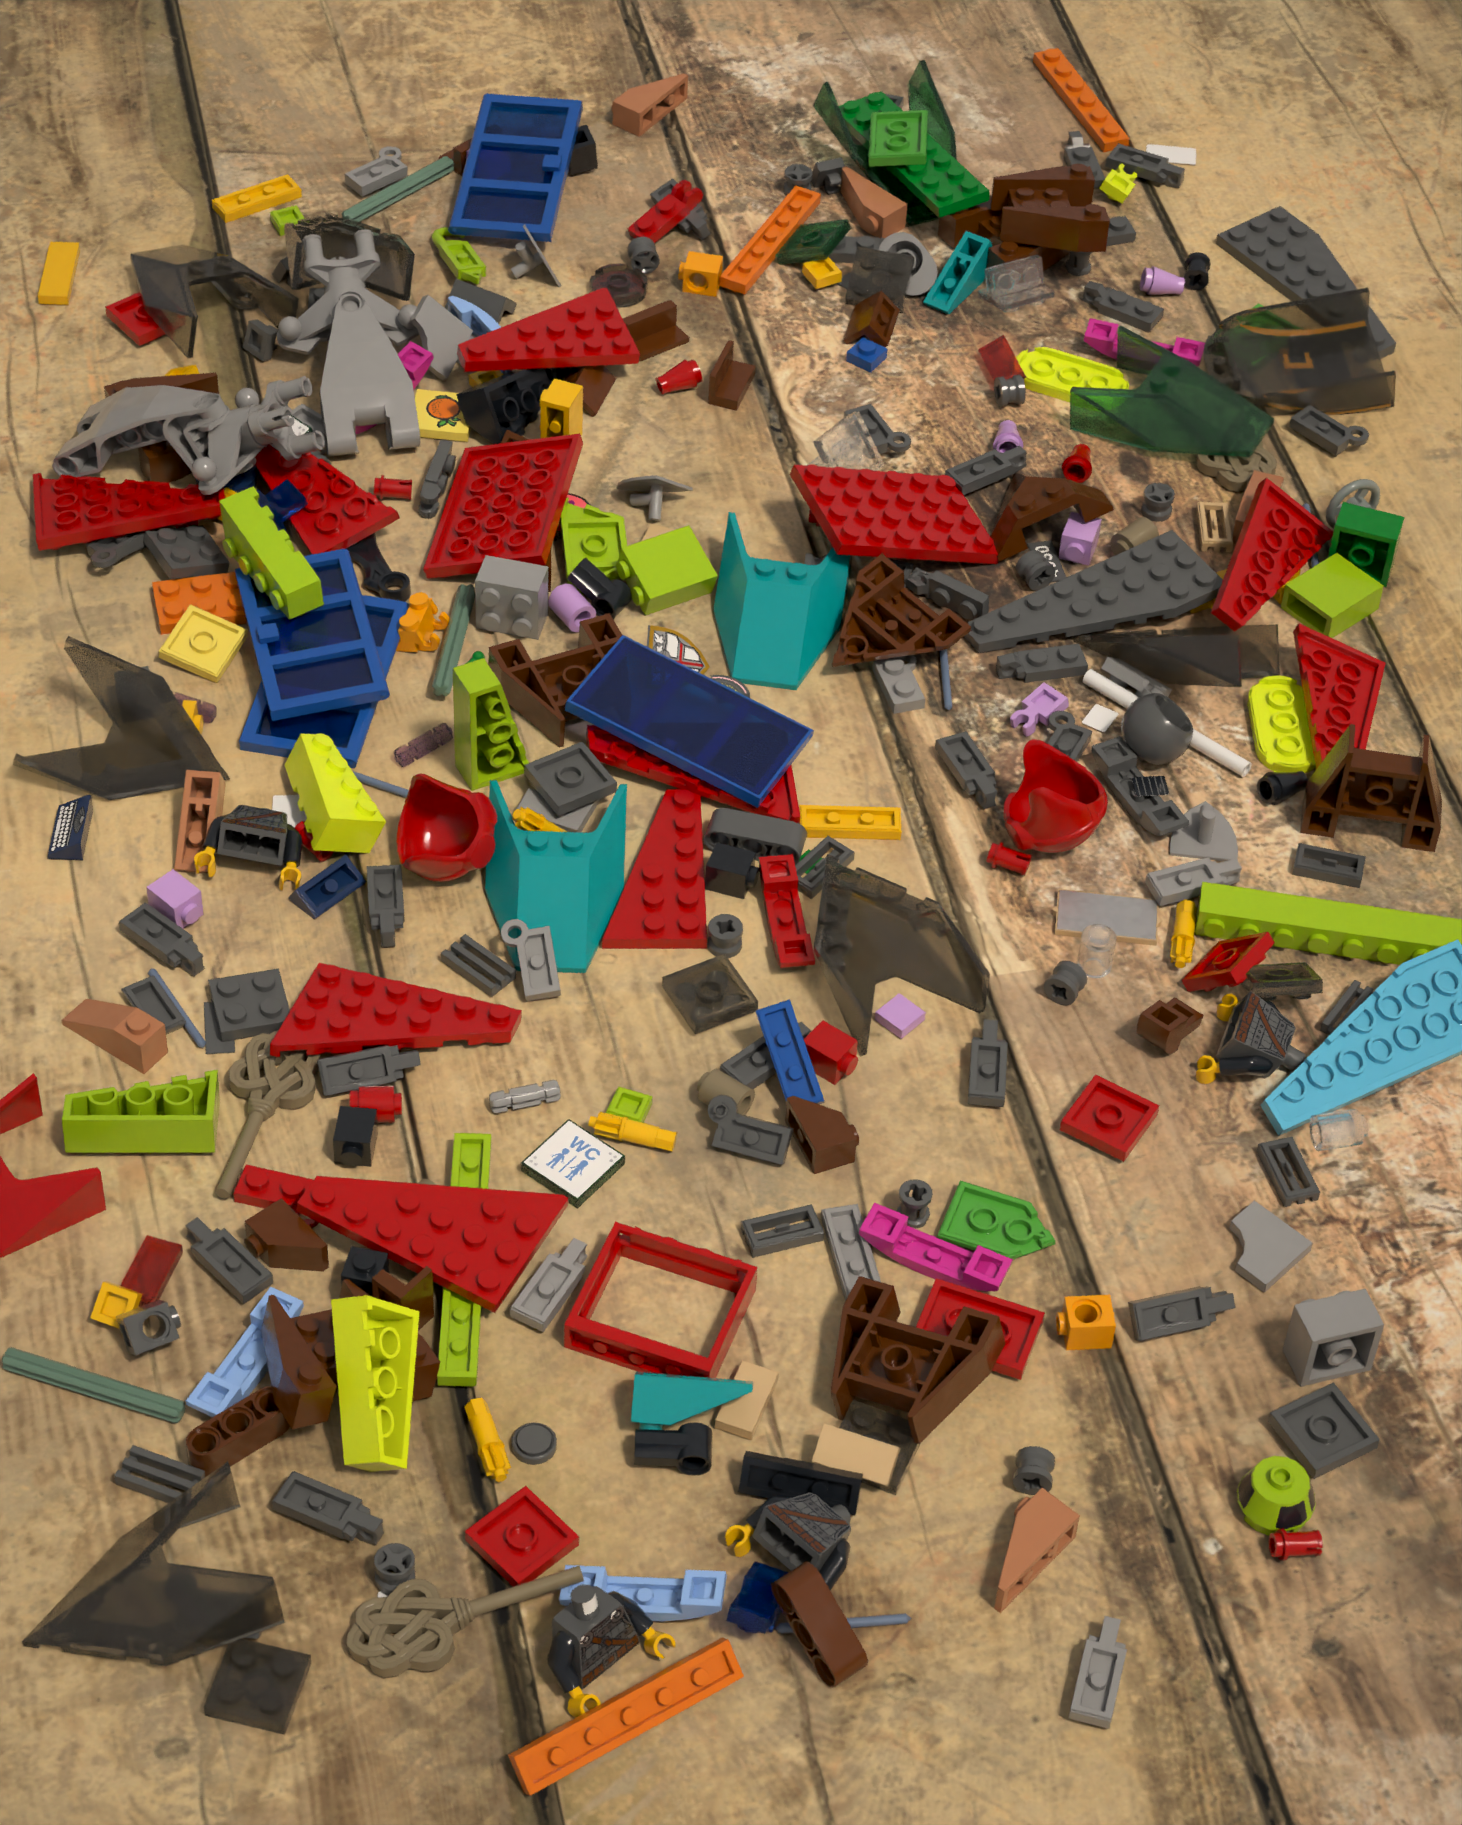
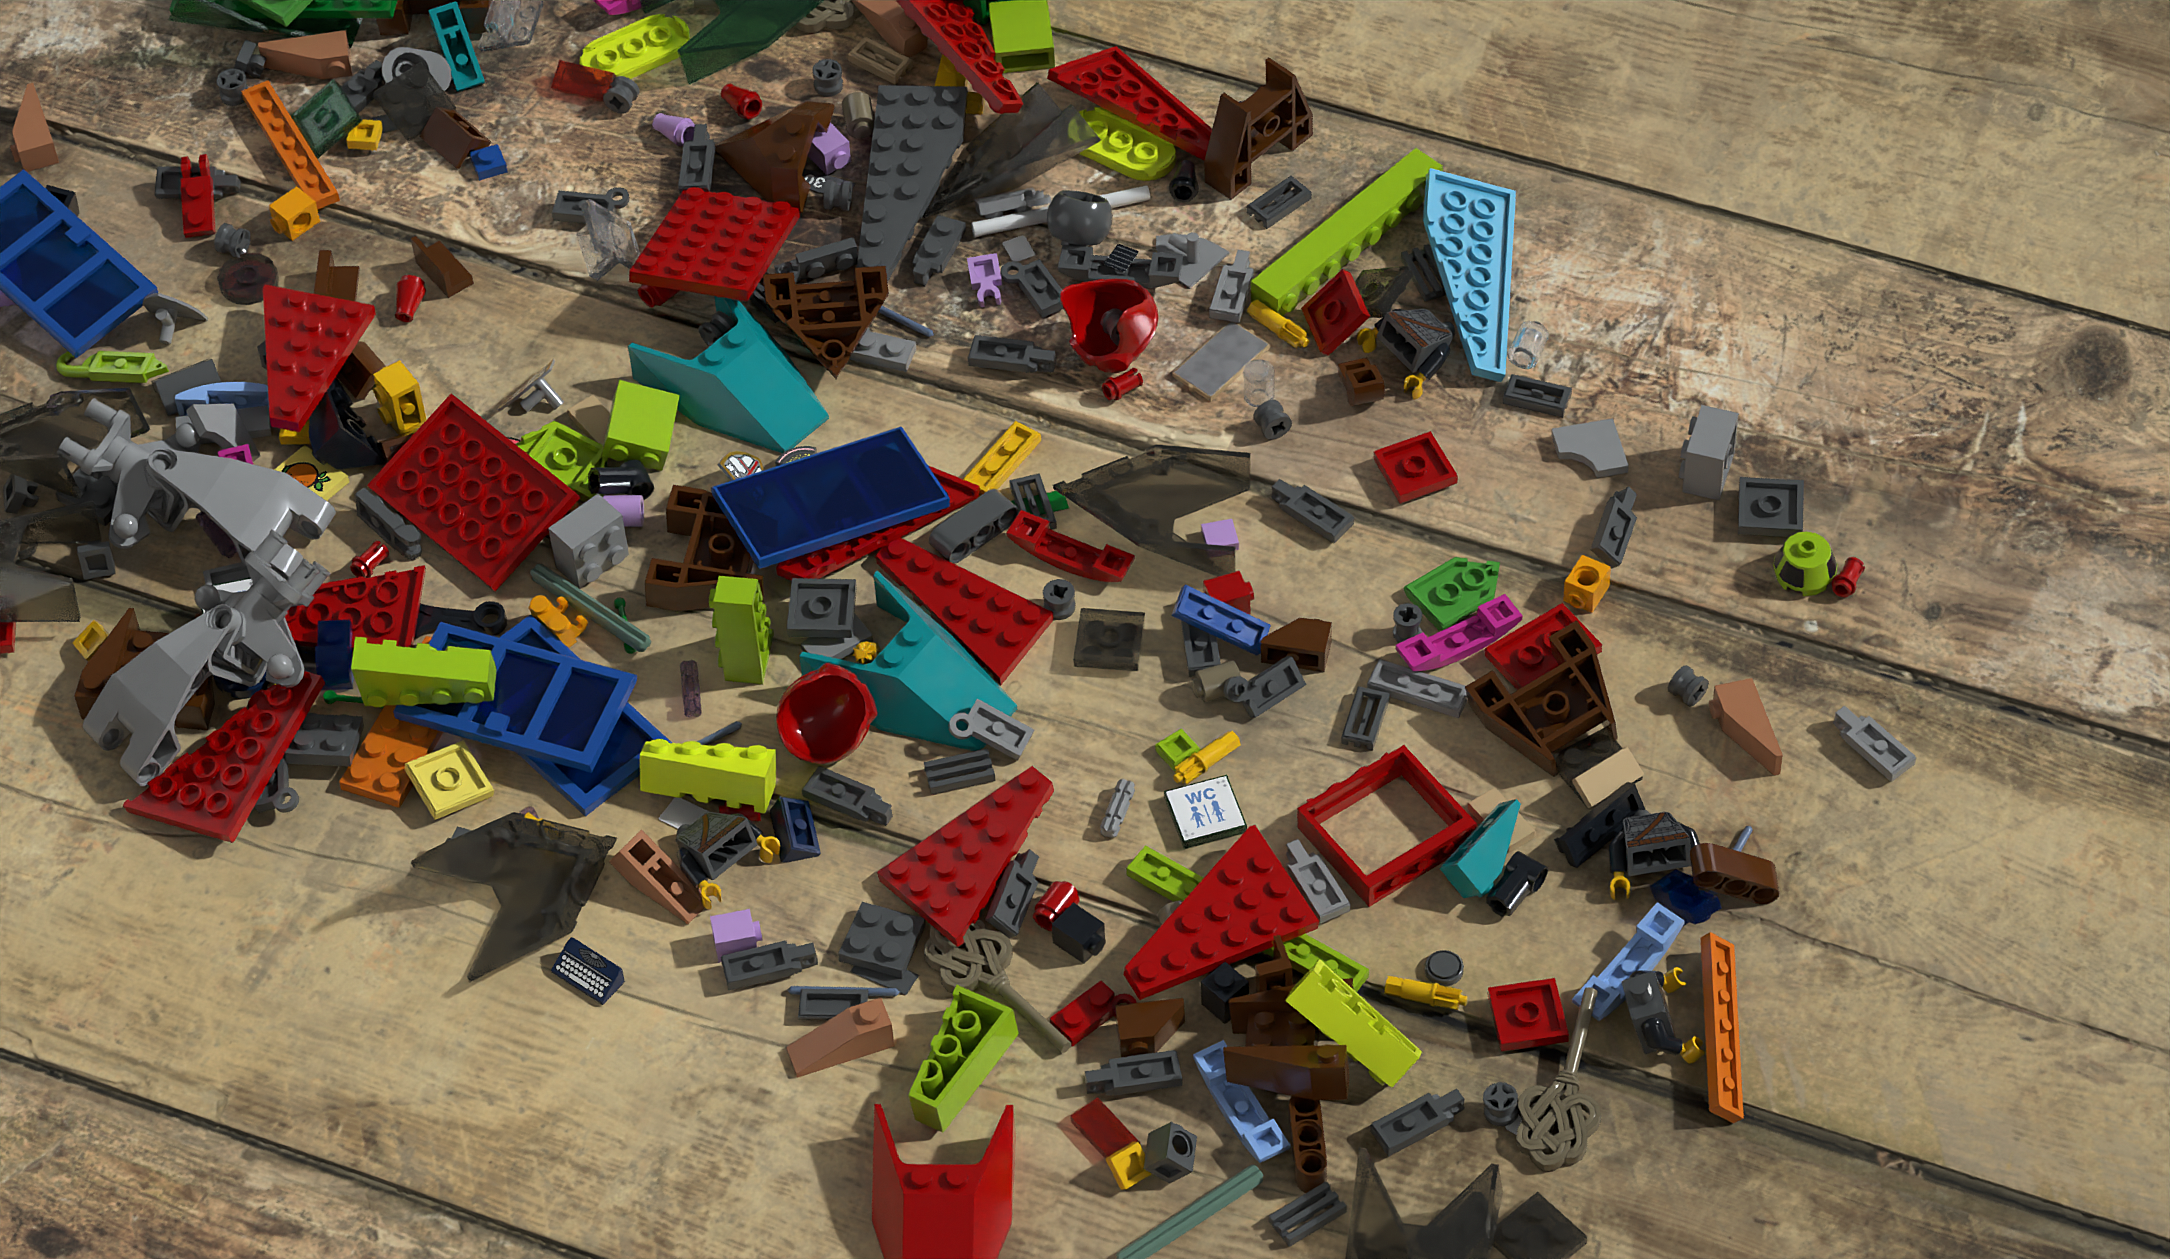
camera: 50 degrees left, 5 degrees up
(731, 871) = (997, 558): black brick -> none

